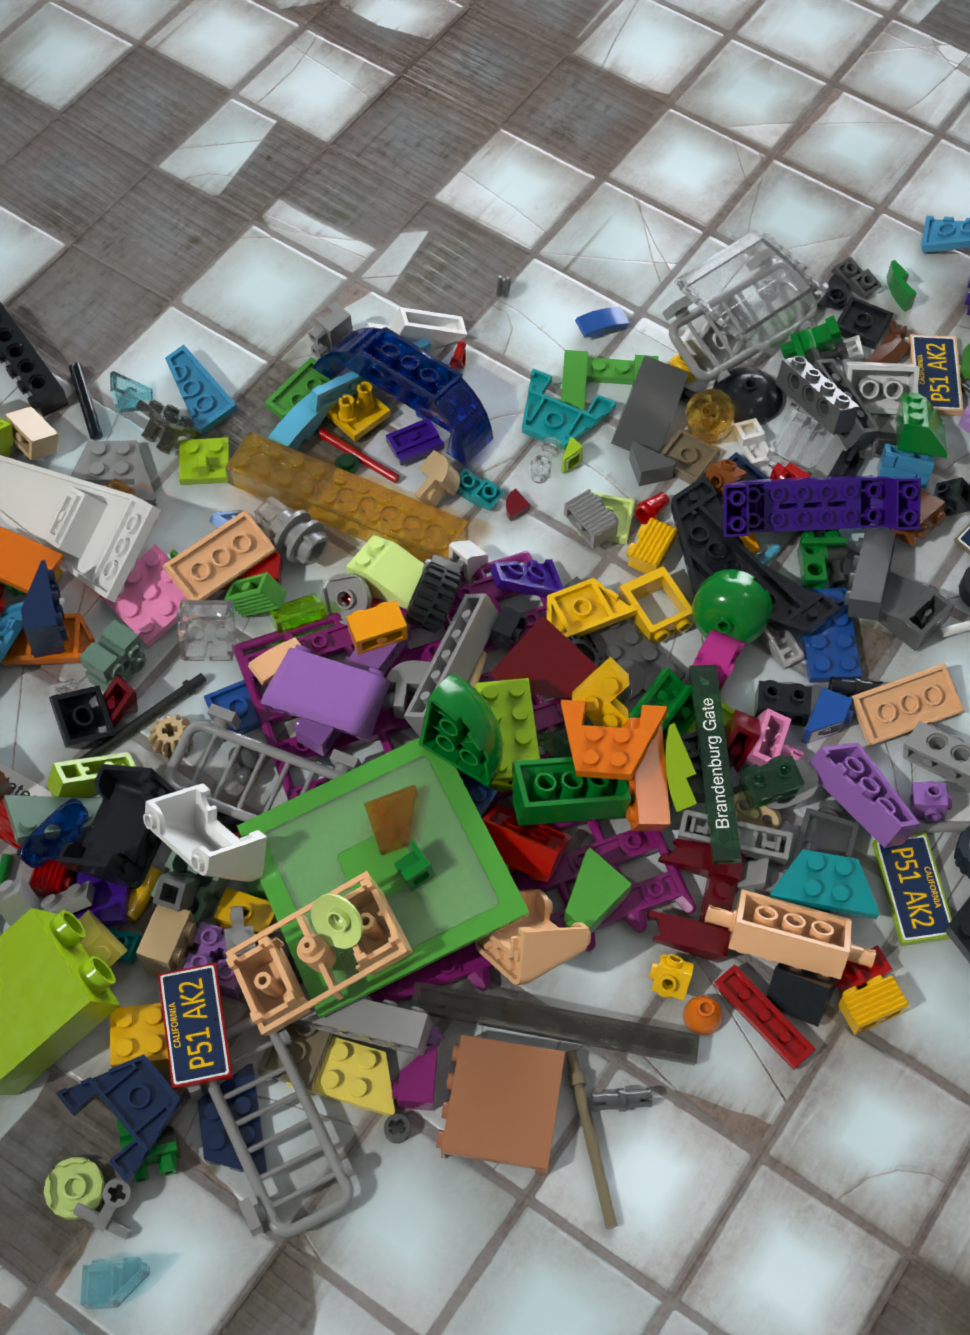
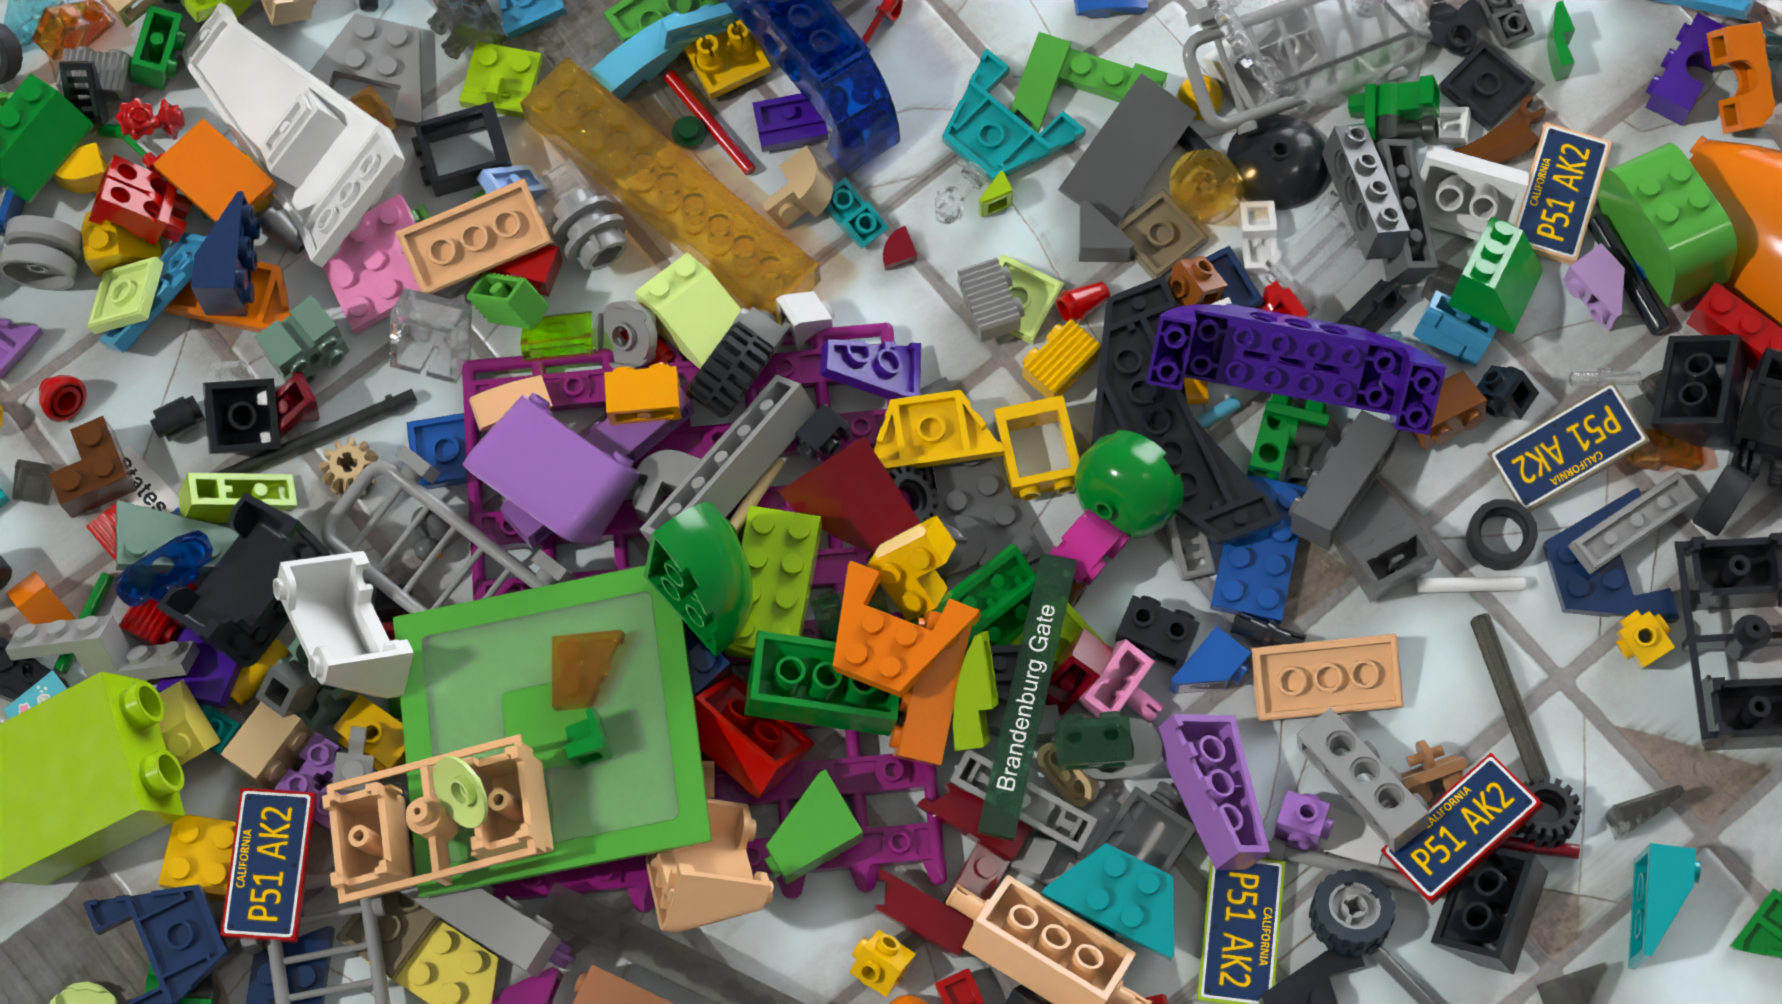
camera: 20 degrees right, 10 degrees up
(32, 733) = (177, 418): none -> black brick
(76, 590) = (280, 228): none -> flat silver cone
(183, 493) = (454, 125): none -> black window

